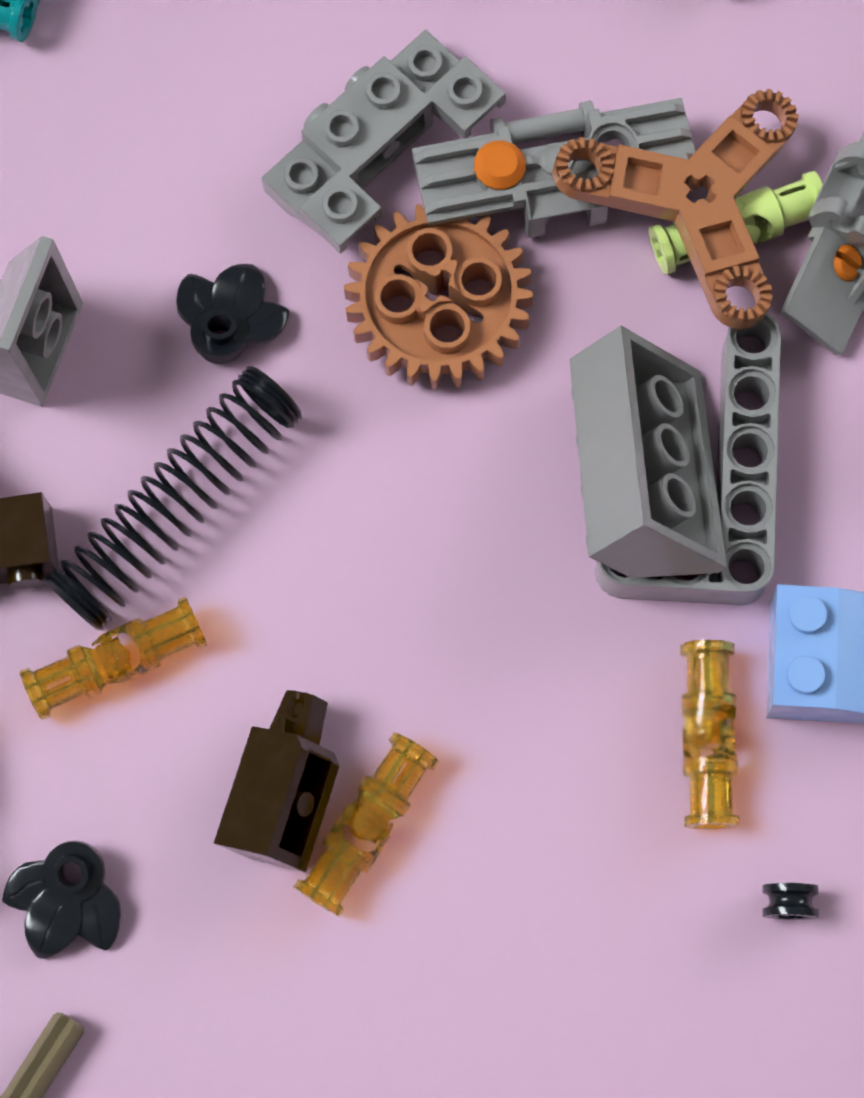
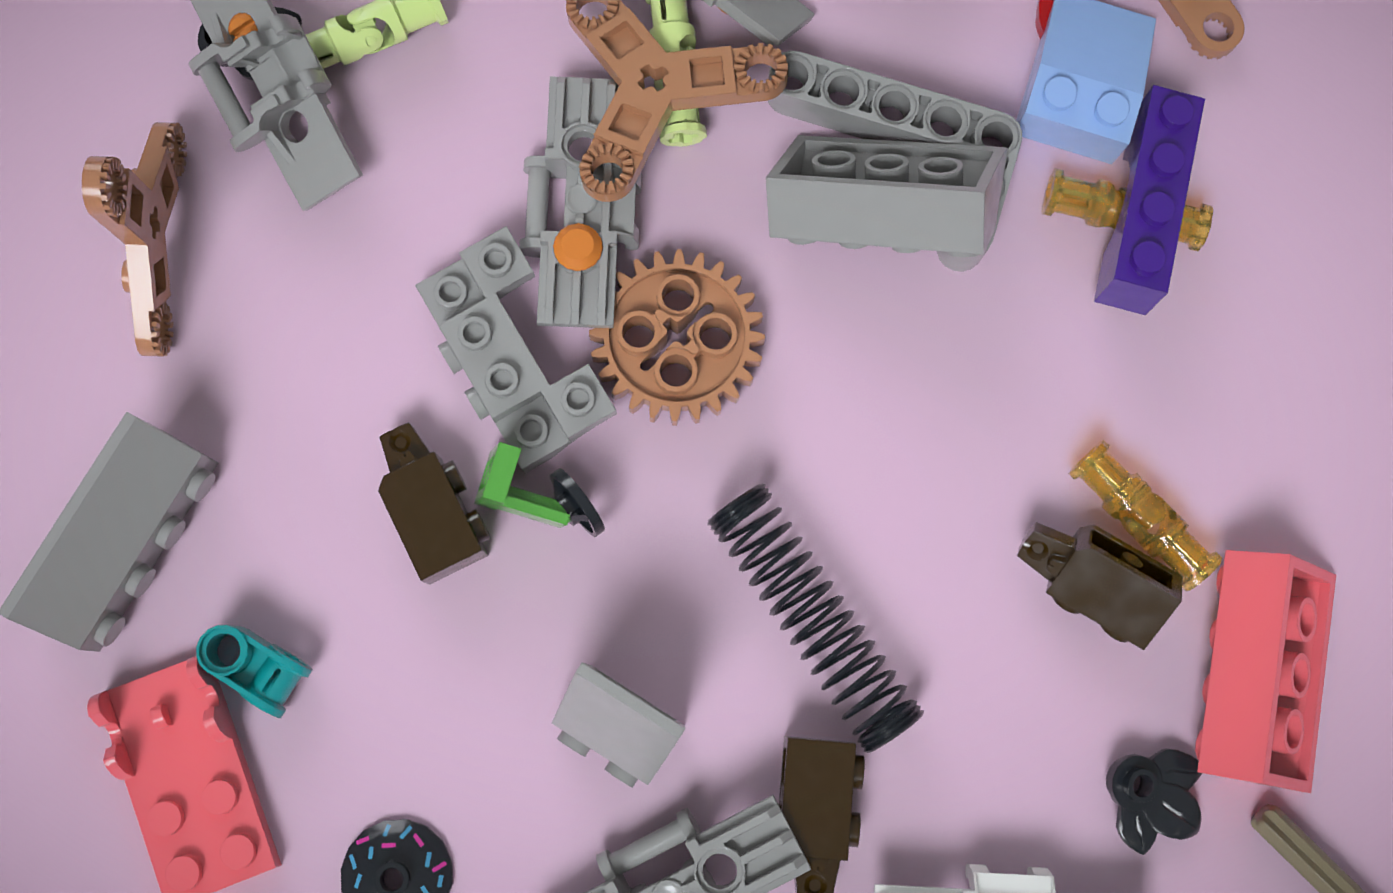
camera: 85 degrees left, 5 degrees up
(110, 659) = (951, 726): clear yellow piece -> none
(201, 102) = (427, 507): none -> dark brown hinge
(223, 994) = (1266, 670): none -> coral slope
(230, 305) = (632, 527): black plate -> none
(233, 151) = (569, 500): none -> bright green piece
(693, 745) = (1145, 240): none -> dark purple arch
(790, 901) = (1279, 182): black bush -> none

